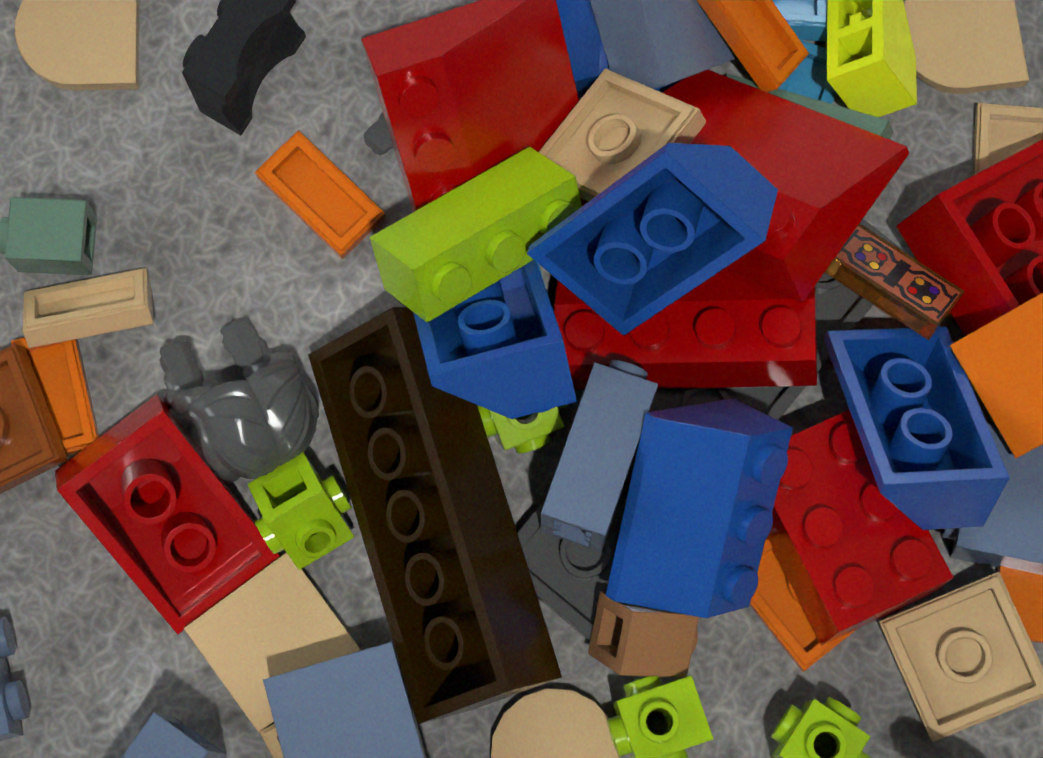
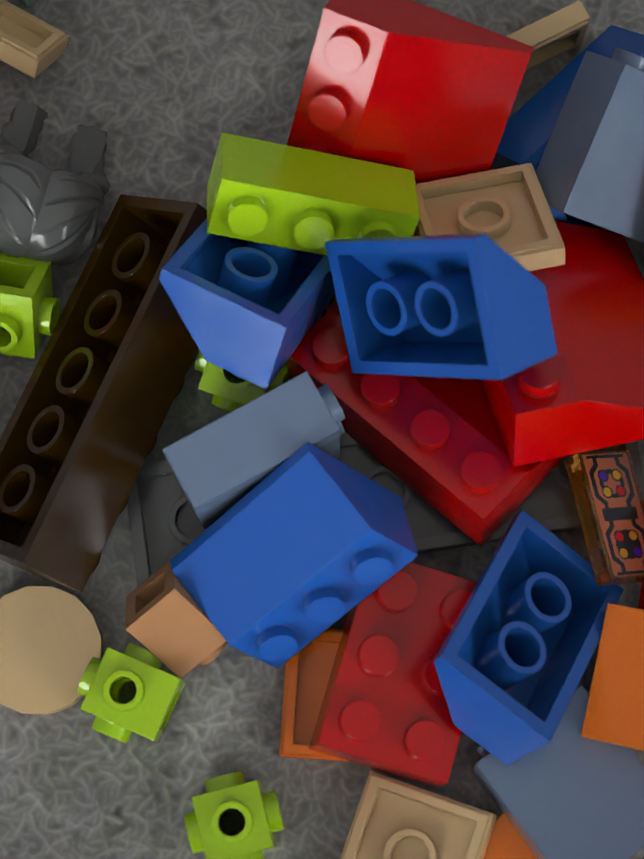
camera: 45 degrees right, 0 degrees up
(320, 194) = (244, 83): orange tile -> none

